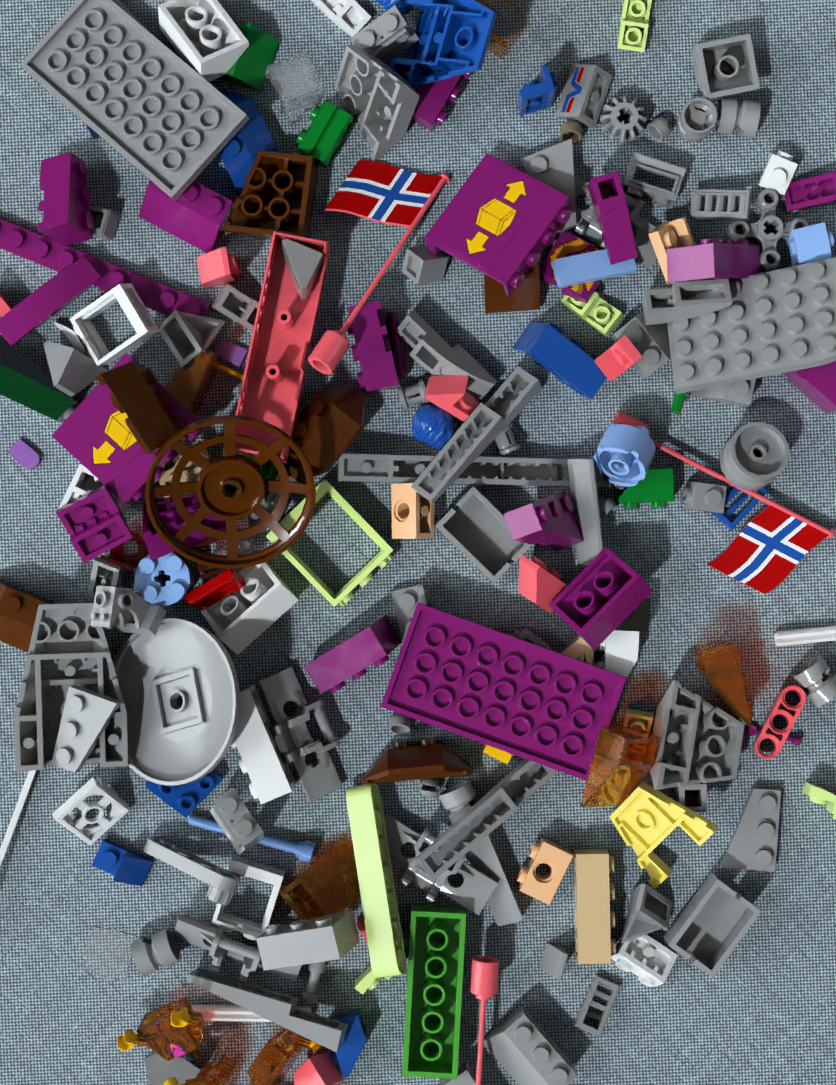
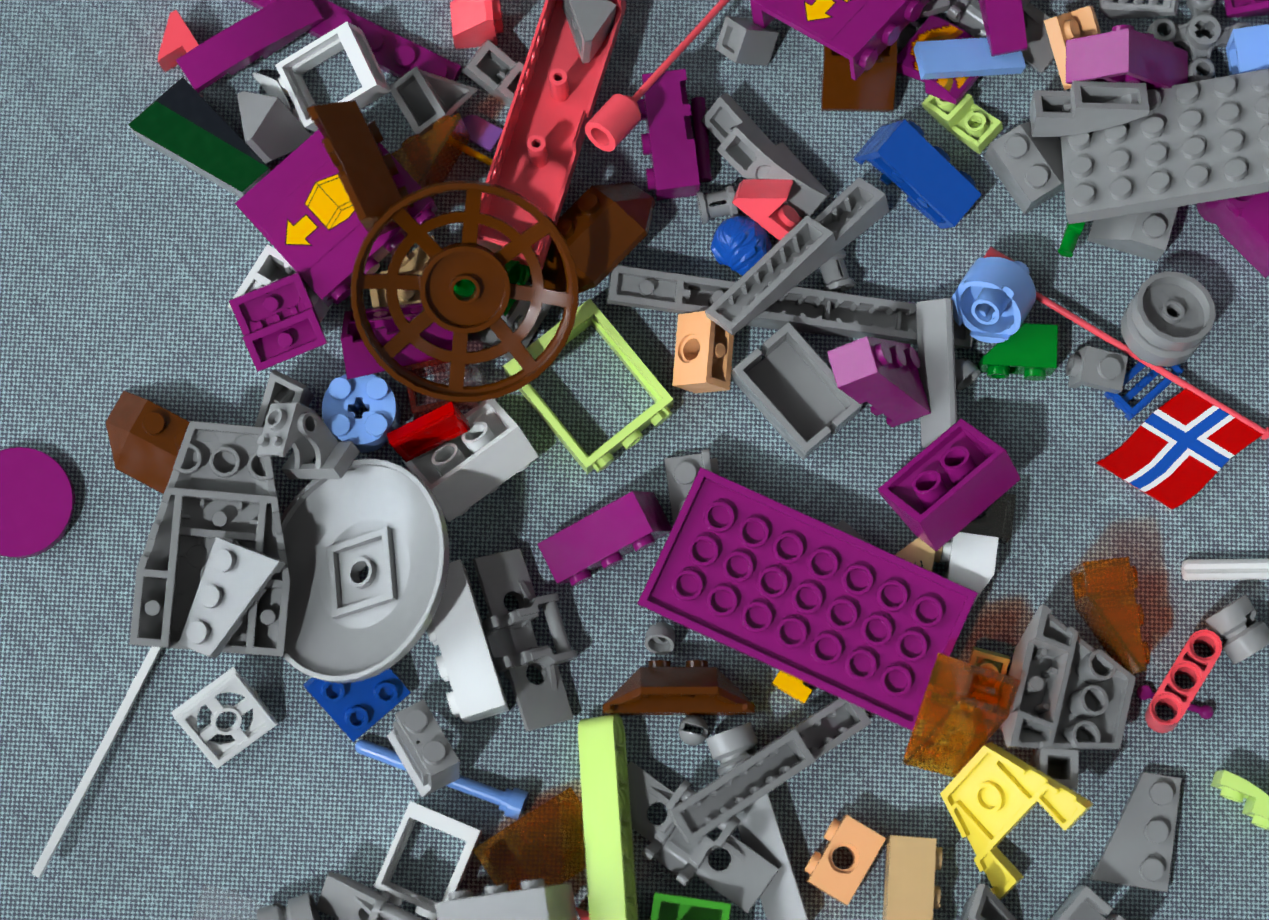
camera: 10 degrees right, 10 degrees down
(24, 454) = (193, 239): medium lavender piece -> none
(119, 558) = (329, 354): clear red piece -> none
(122, 863) = (258, 798): blue slope -> none
(221, 881) = (394, 828): light grey beam -> none
(539, 584) = (865, 460): coral slope -> none
(618, 358) = (996, 174): coral slope -> none

